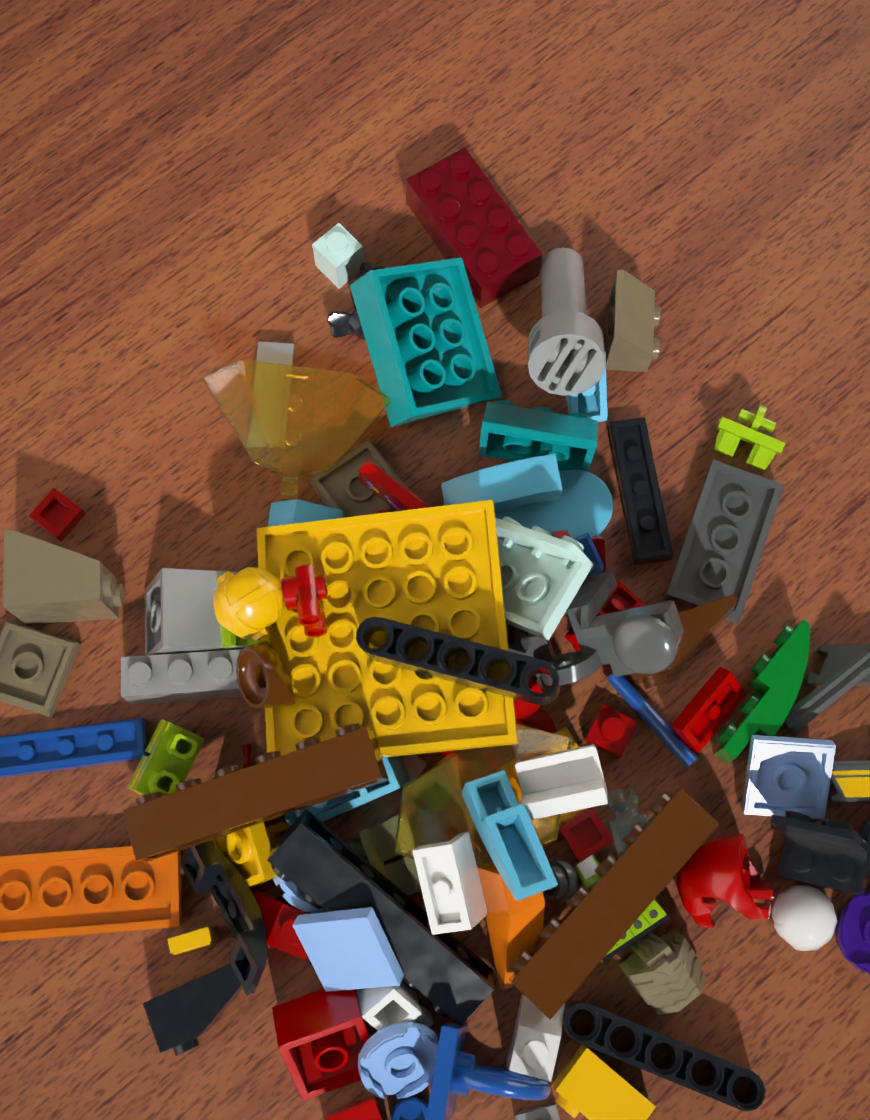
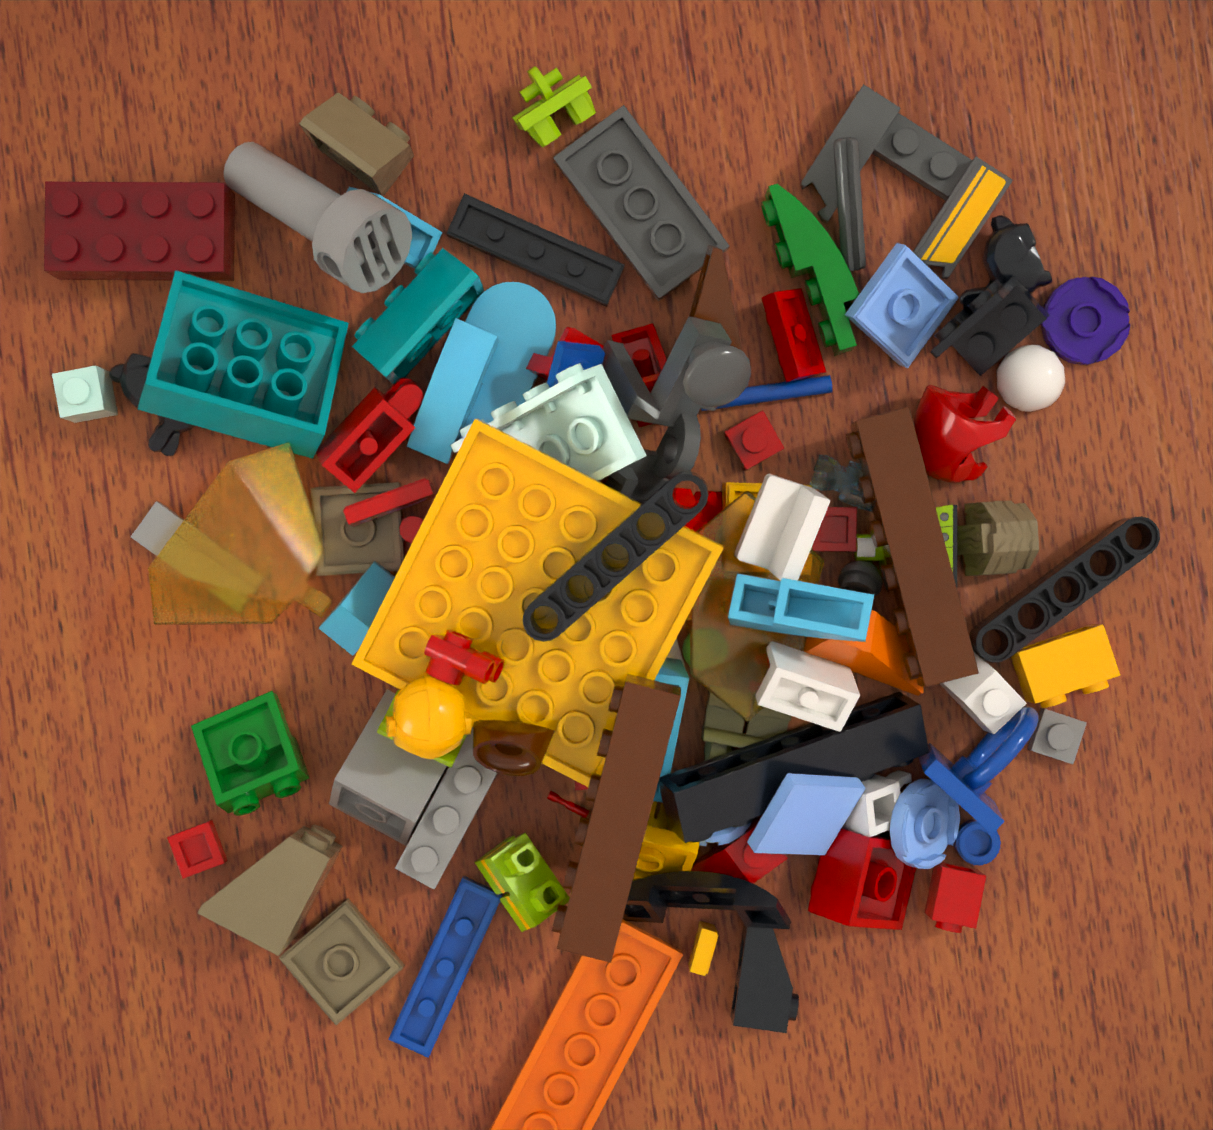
camera: 55 degrees left, 15 degrees up
(148, 509) = (250, 754): none -> green plate
(434, 451) = (371, 433): none -> red brick

